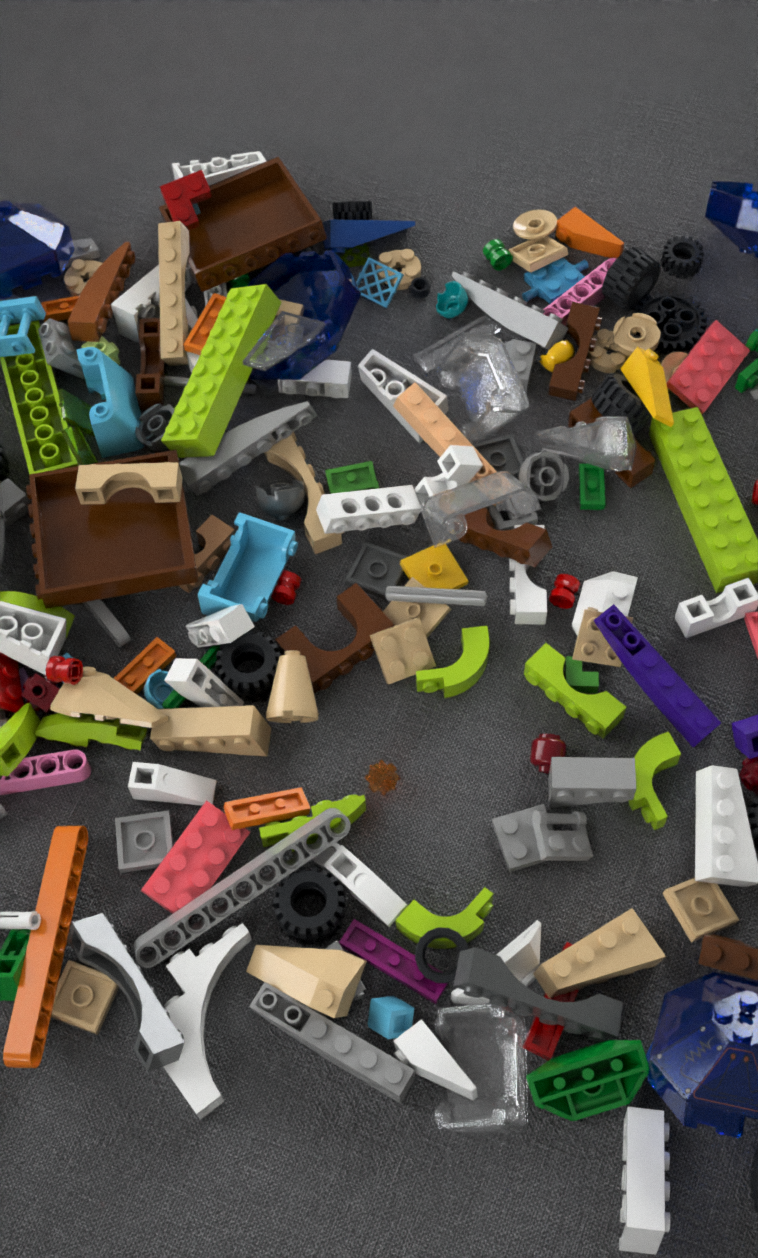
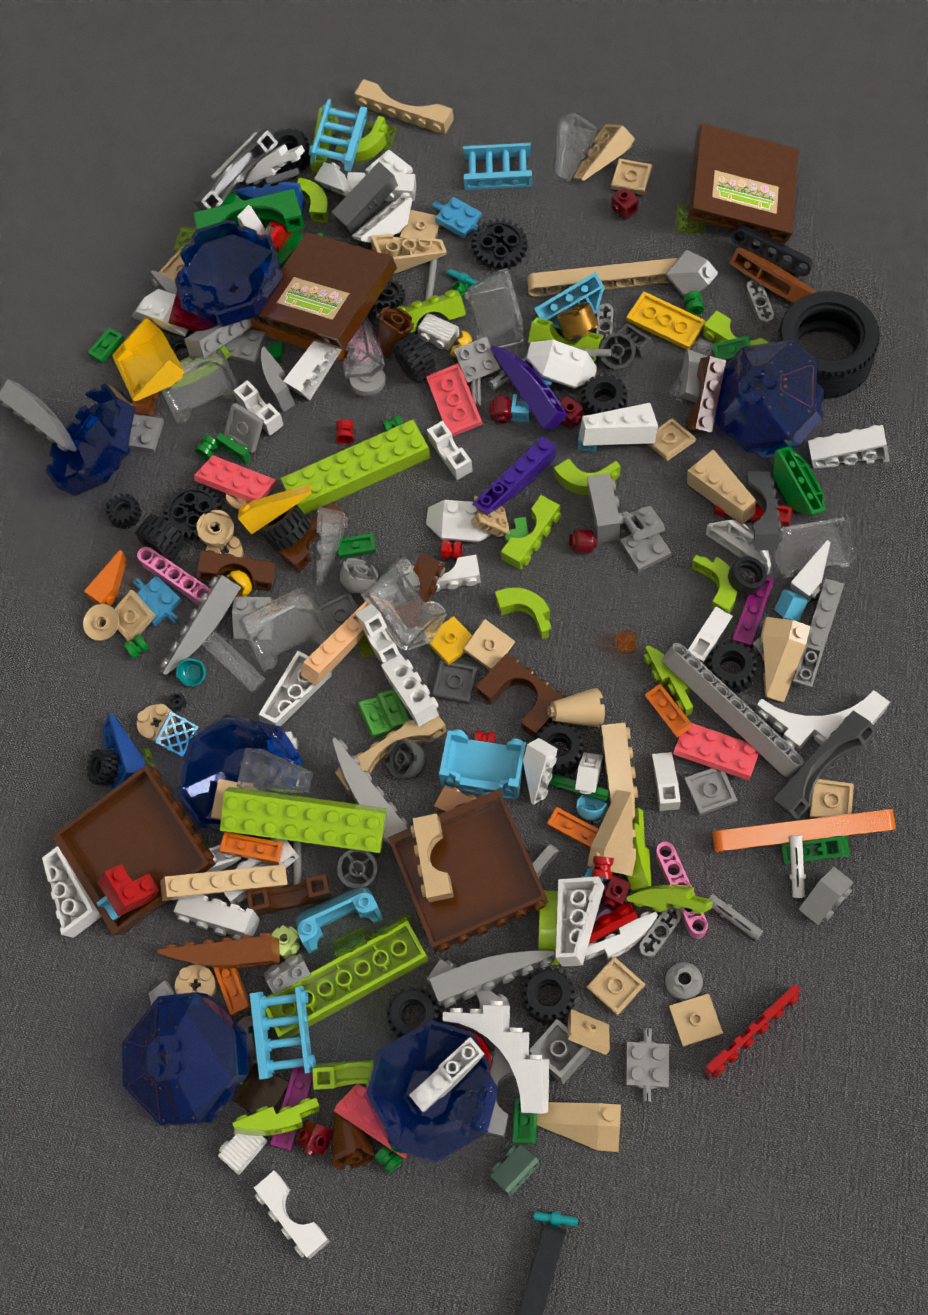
camera: 95 degrees left, 5 degrees up
(402, 650) = (524, 646): tan plate -> none
(436, 595) = (479, 627): light grey axle -> none

